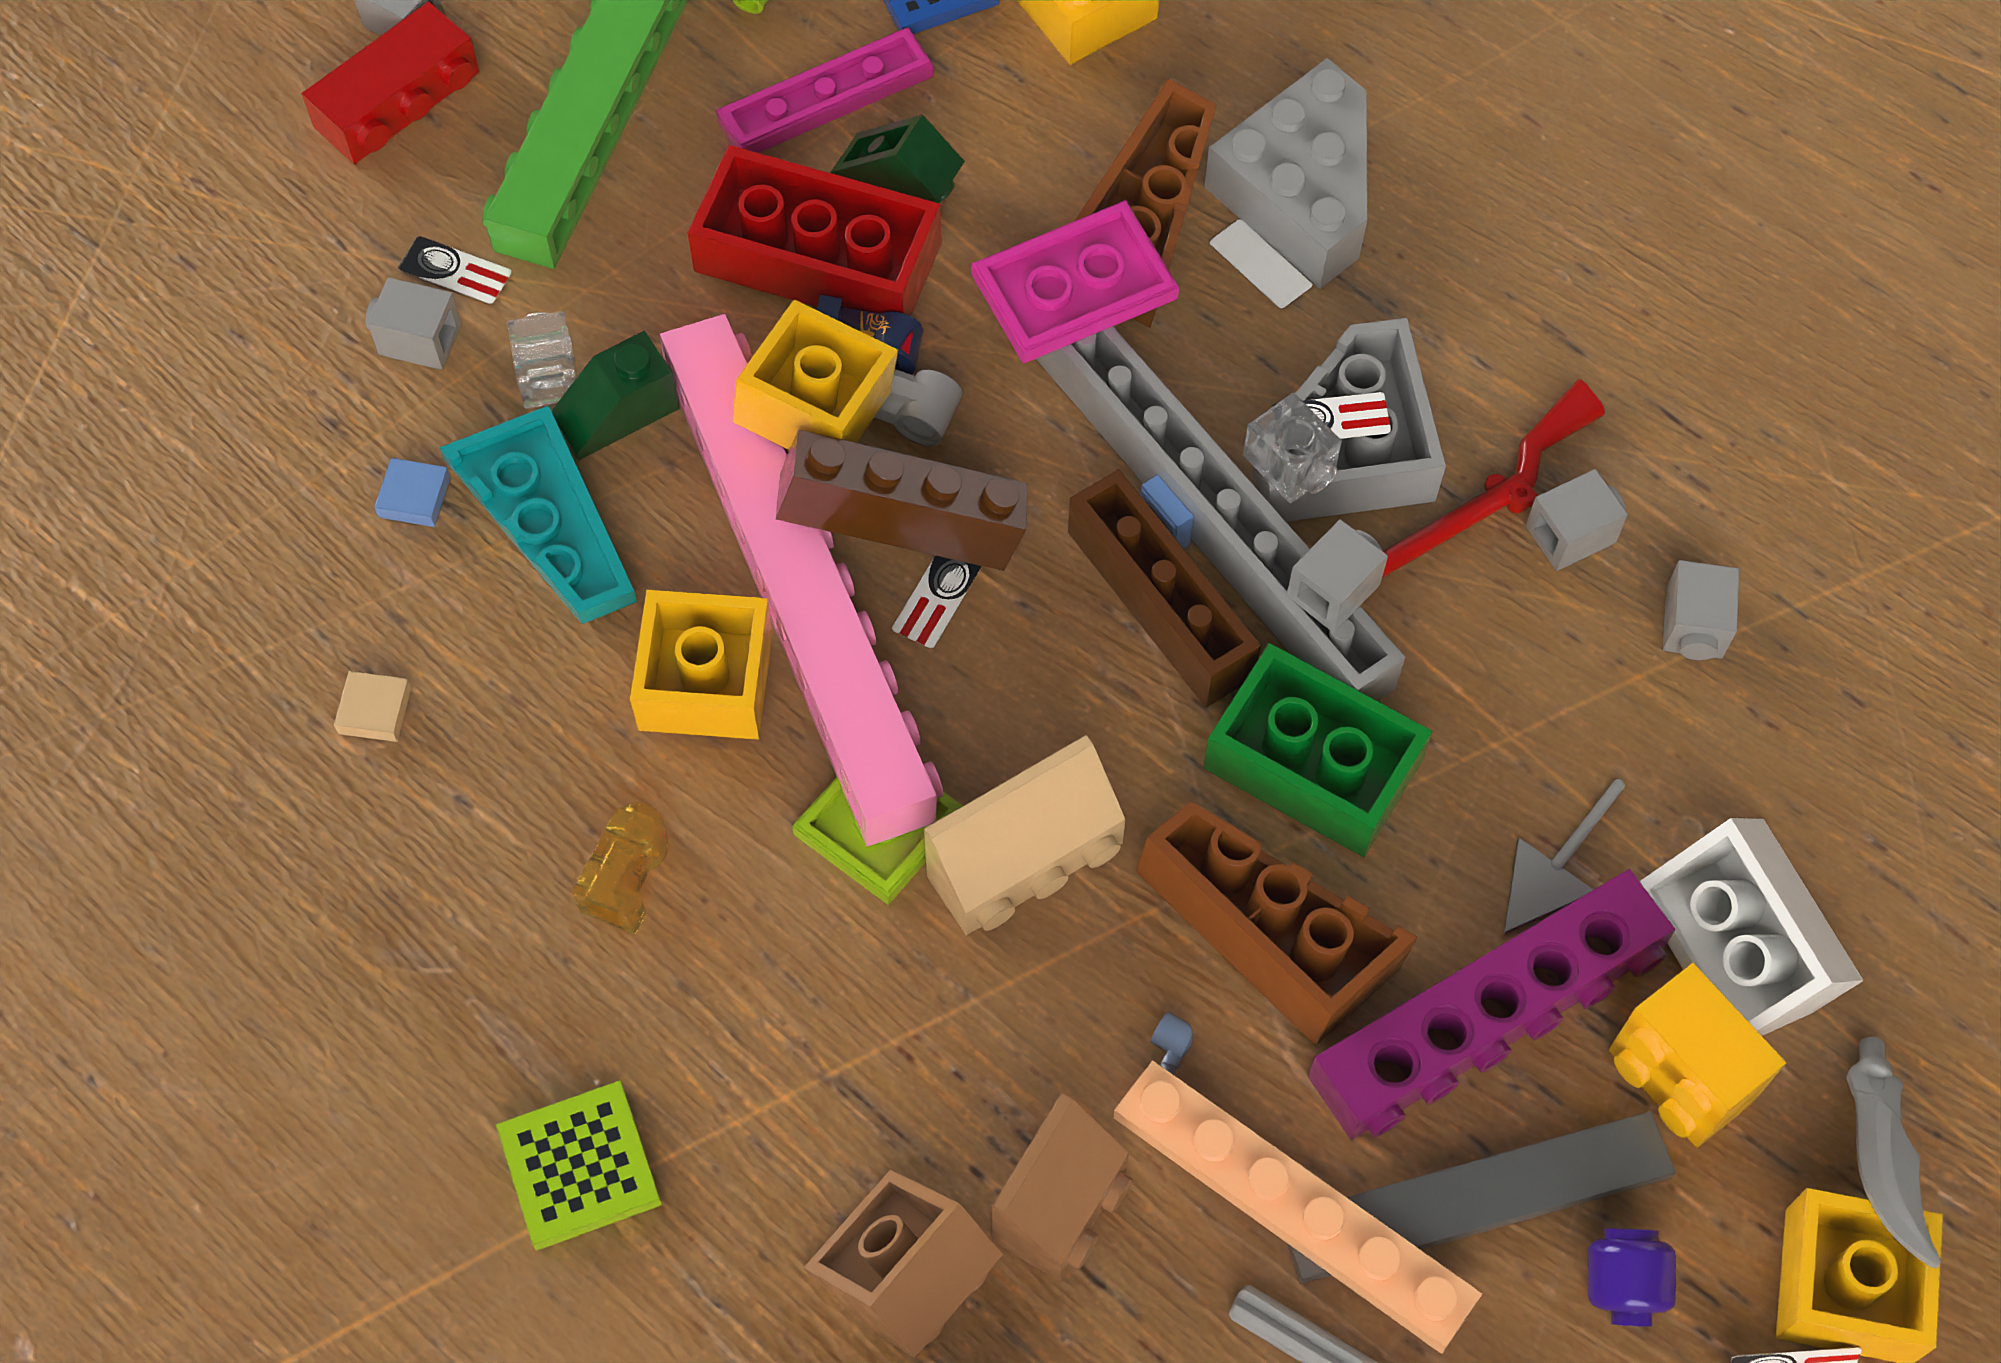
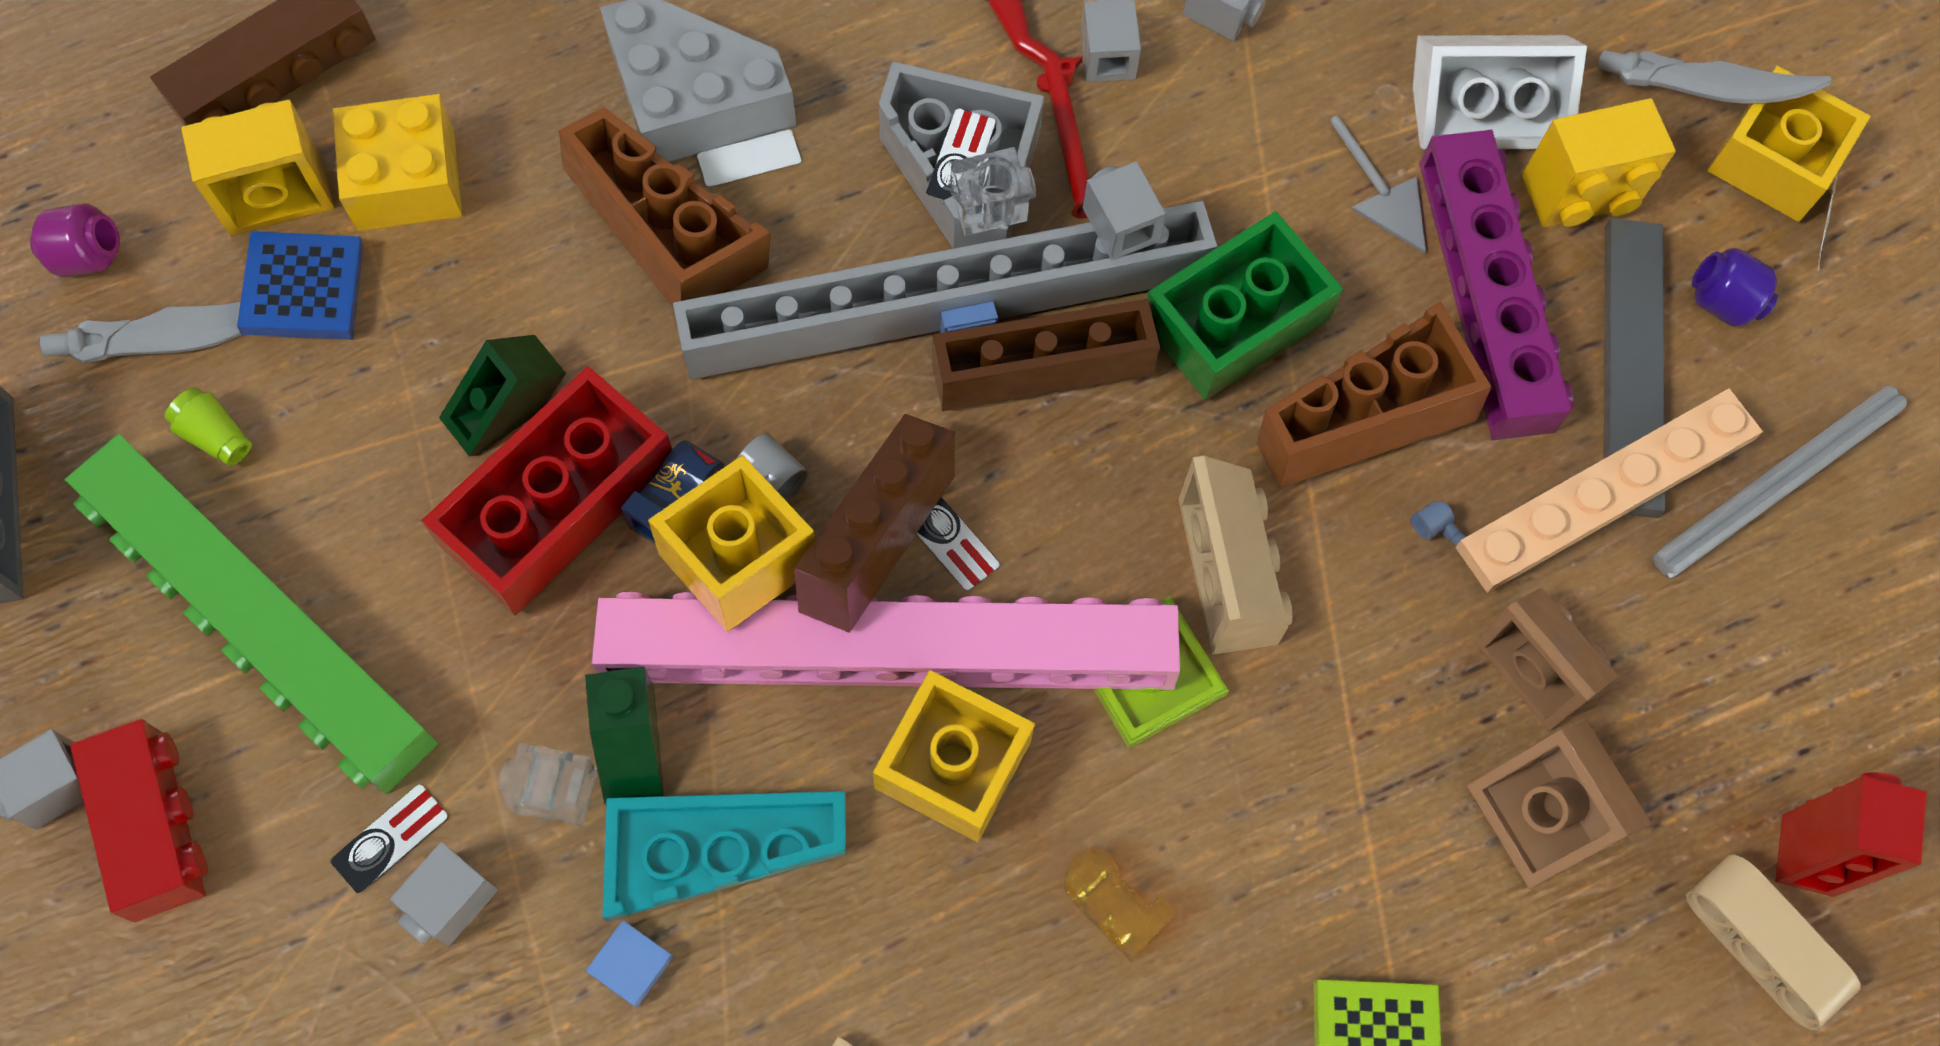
camera: 70 degrees left, 5 degrees up
(825, 92) = (378, 428): dark pink tile -> none
(1074, 281) = (733, 289): dark pink tile -> none

